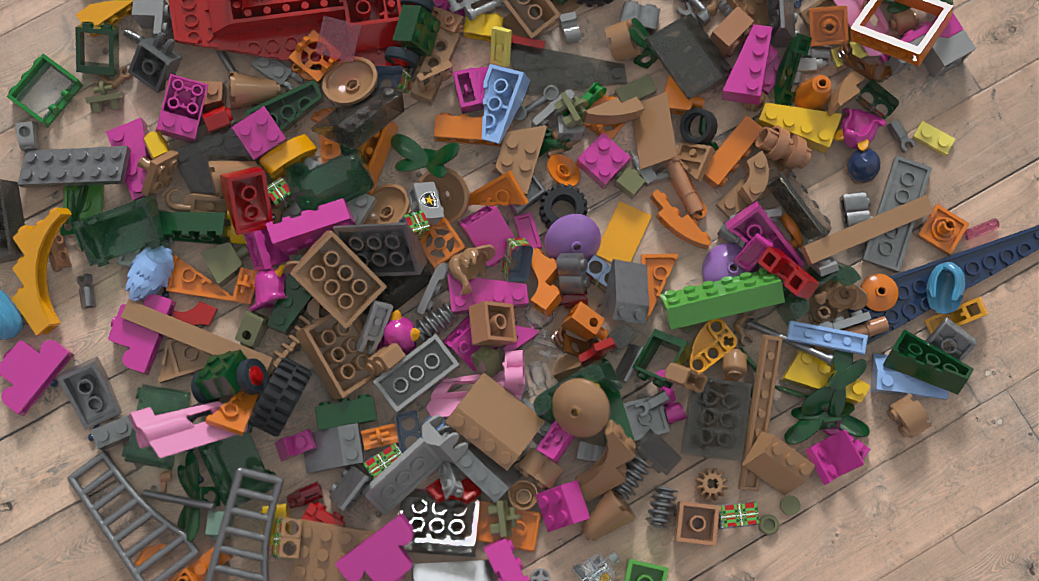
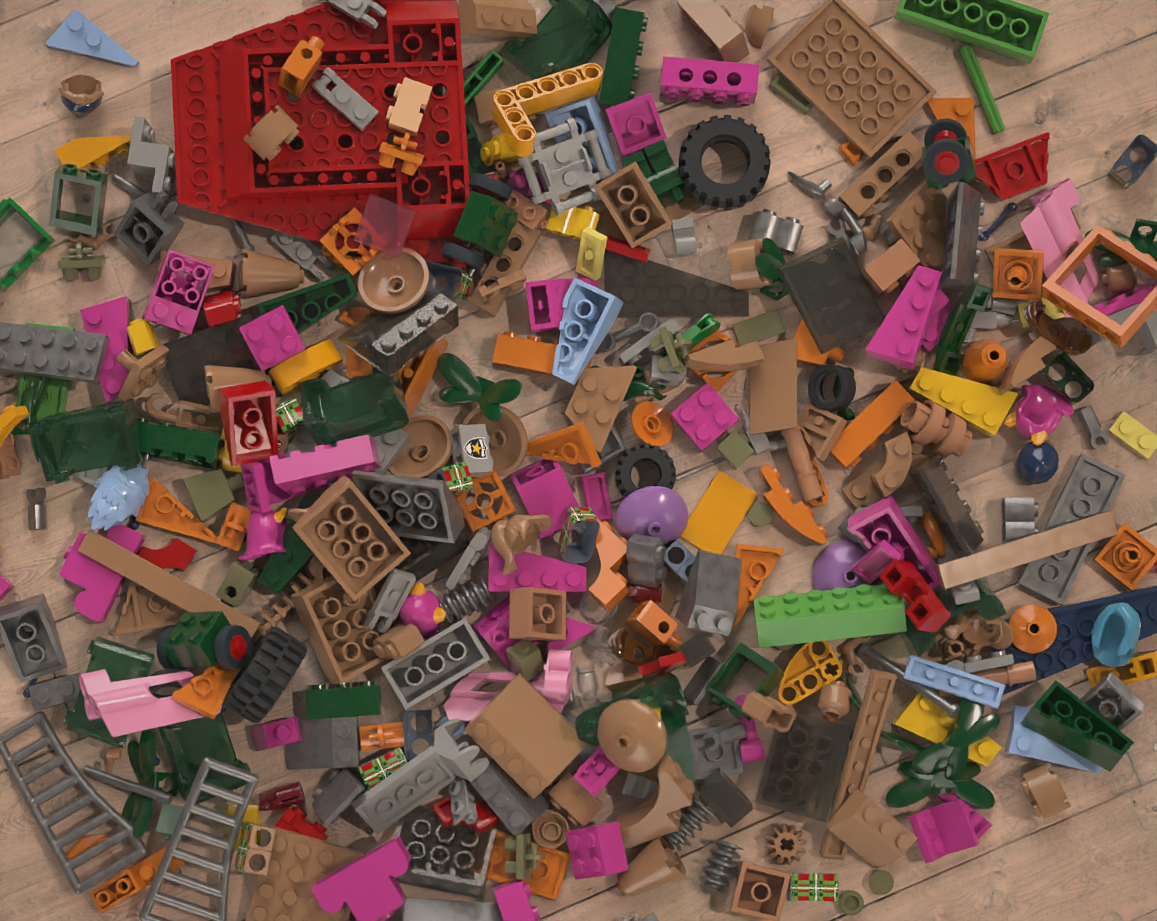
camera: 15 degrees right, 5 degrees up
(656, 230) = (760, 514): none -> olive tile

